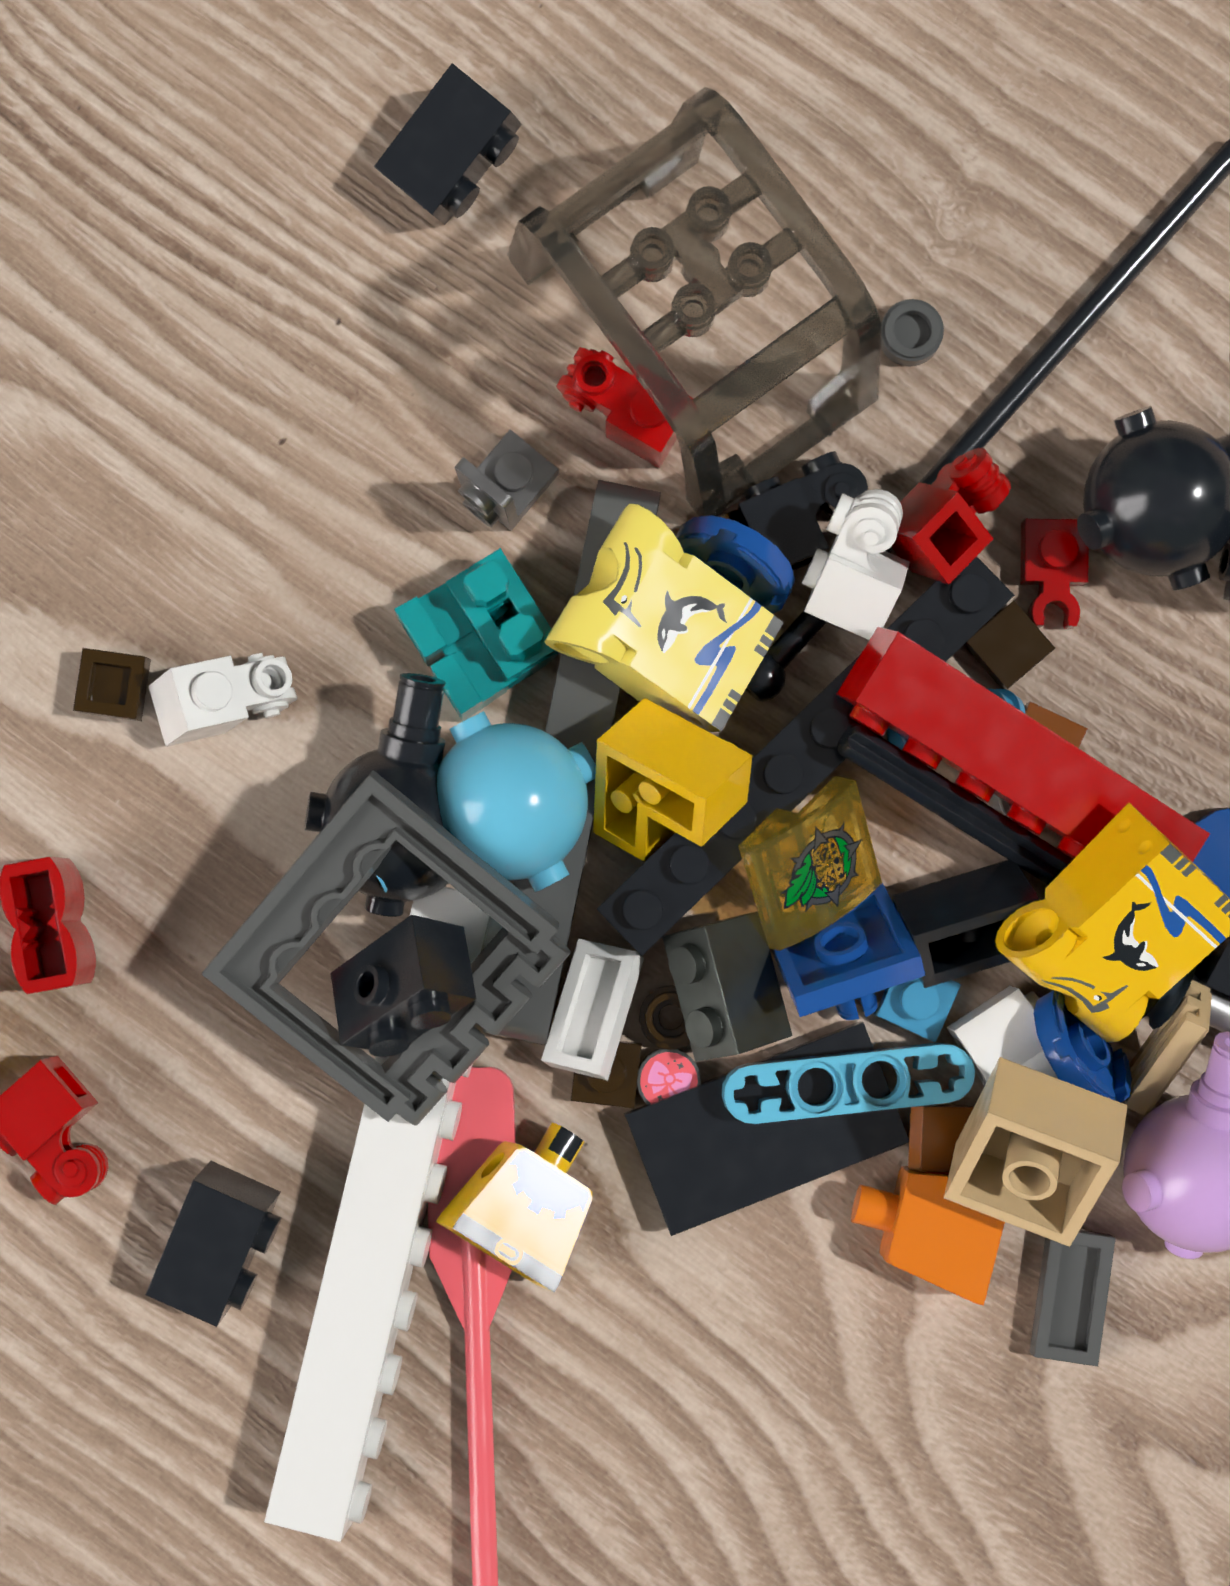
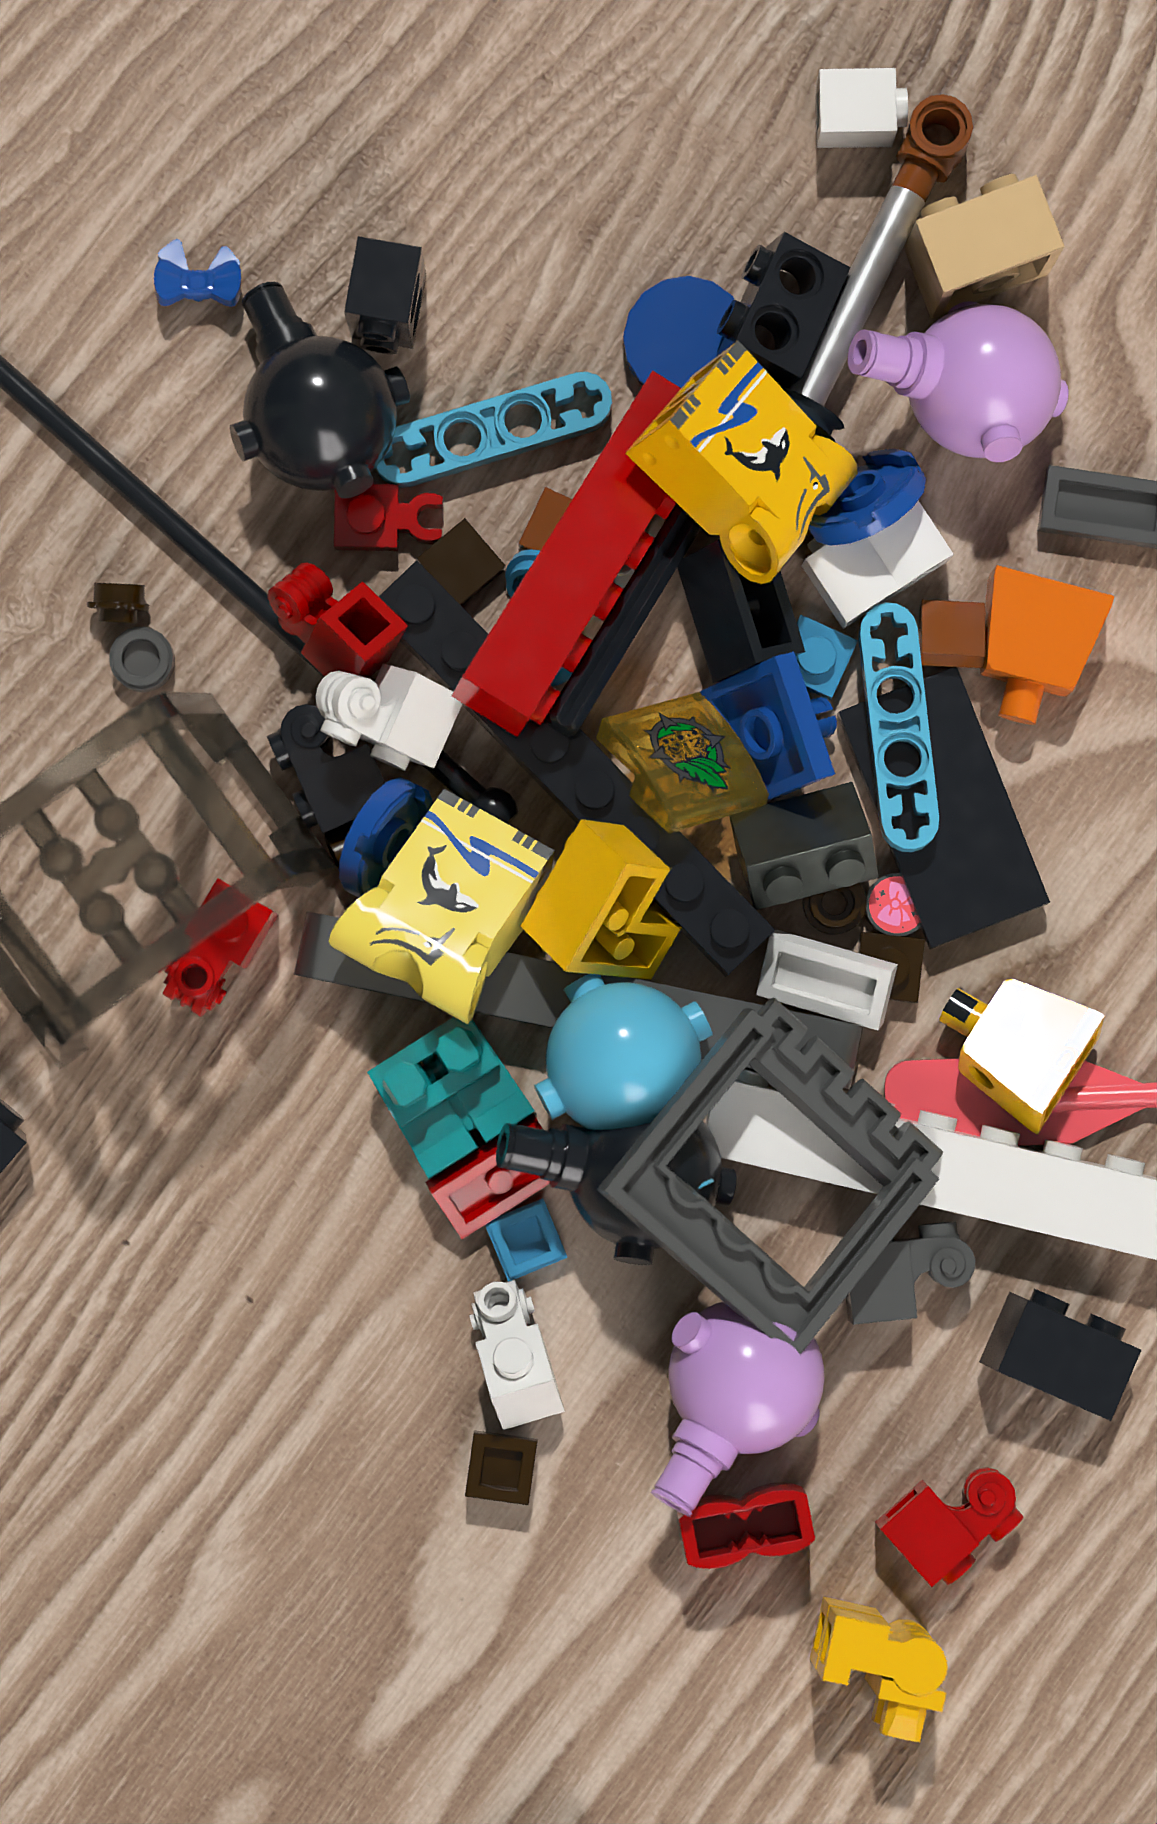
camera: 95 degrees left, 0 degrees up
(168, 911) = (733, 1398): none -> lavender piece
(281, 1070) = (888, 1285): none -> dark grey brick
(337, 710) = (526, 1239): none -> dark azure tile
(379, 655) = (479, 1191): none -> plate
(402, 986) = (807, 1161): black brick -> none
(505, 481) = (294, 1068): flat silver bracket -> none
(968, 307) = (118, 602): none -> dark brown plate
(1036, 1152) = (964, 546): tan brick -> none
(1132, 679) = (496, 440): none -> medium azure beam
(1169, 1049) = (864, 413): tan tile -> none

